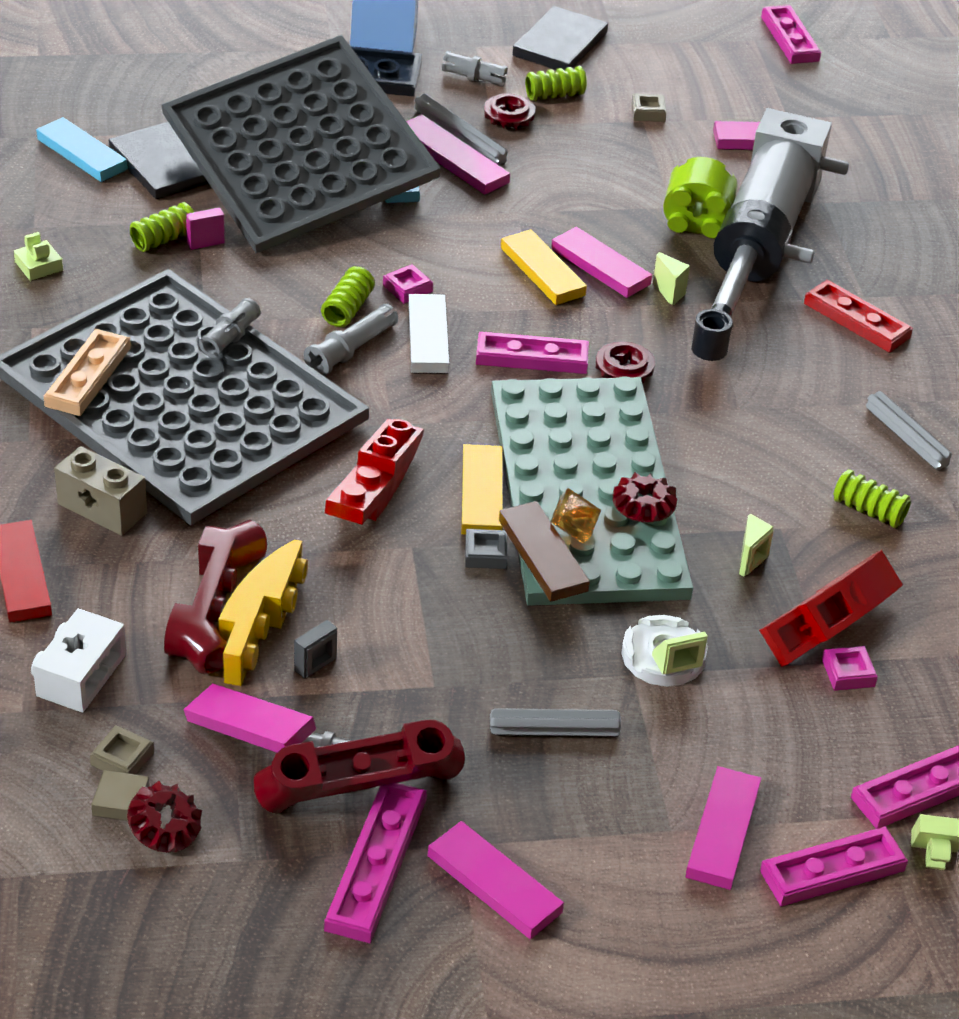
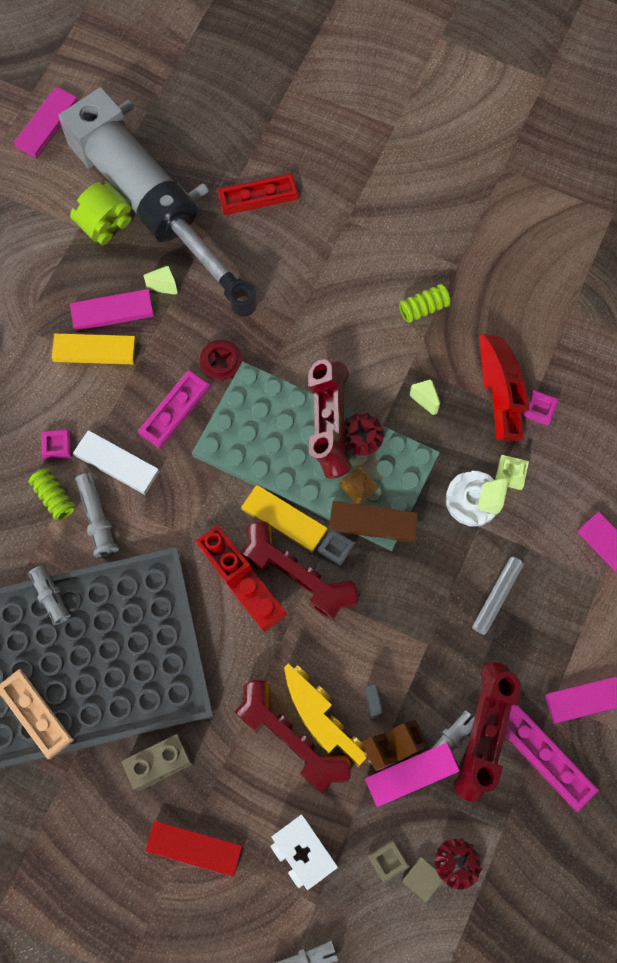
camera: 55 degrees left, 30 degrees up
(265, 677) = (394, 745): none -> reddish brown brick
(413, 549) = (326, 598): none -> dark red plate
(597, 457) = (328, 443): none -> dark red plate
(733, 671) = (513, 470): none -> yellowish green tile
(909, 430) = (377, 240): light grey axle -> none

